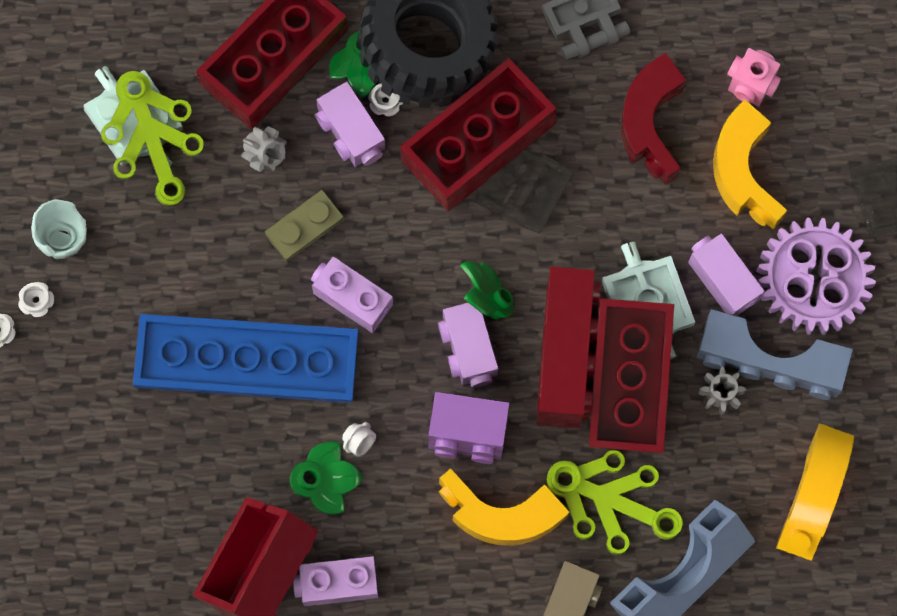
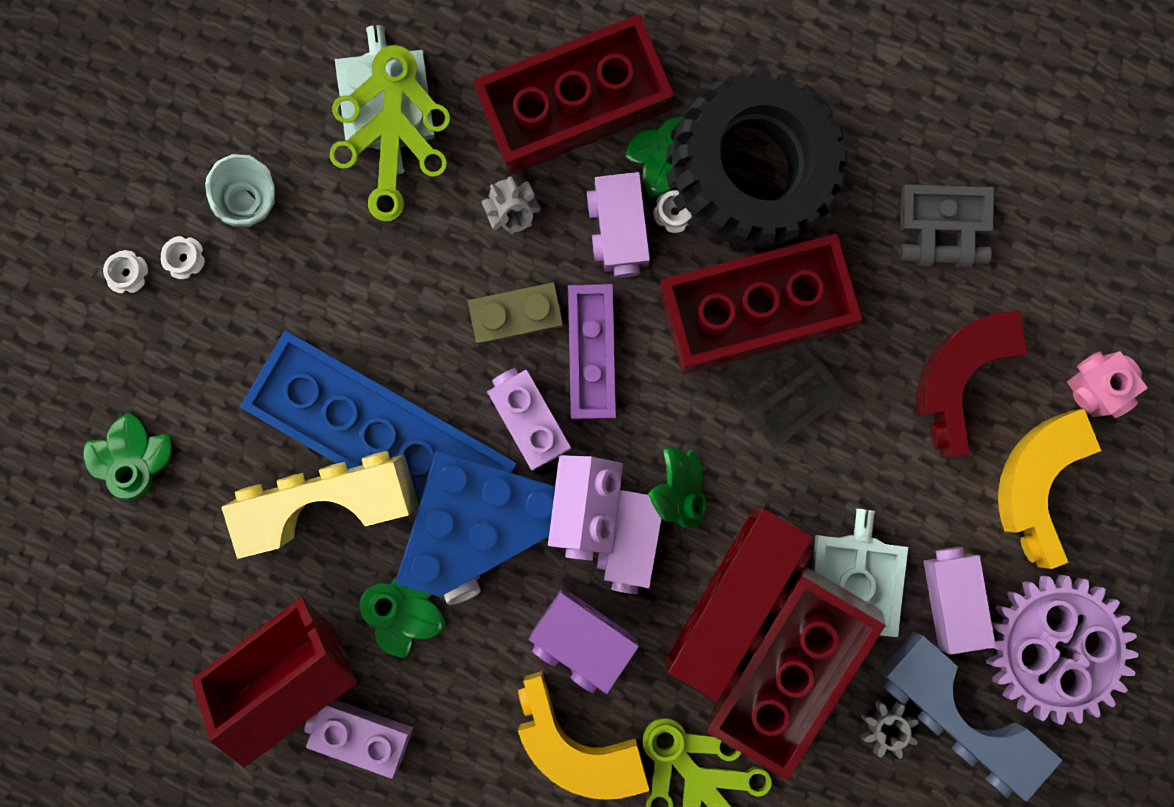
camera: 30 degrees right, 10 degrees up
(60, 459) = (127, 450): none -> green plate
(192, 453) = (268, 518): none -> light yellow arch
(346, 382) = (470, 523): none -> blue plate
(374, 226) = (591, 351): none -> medium lavender plate
(423, 331) = (585, 506): none -> lavender brick

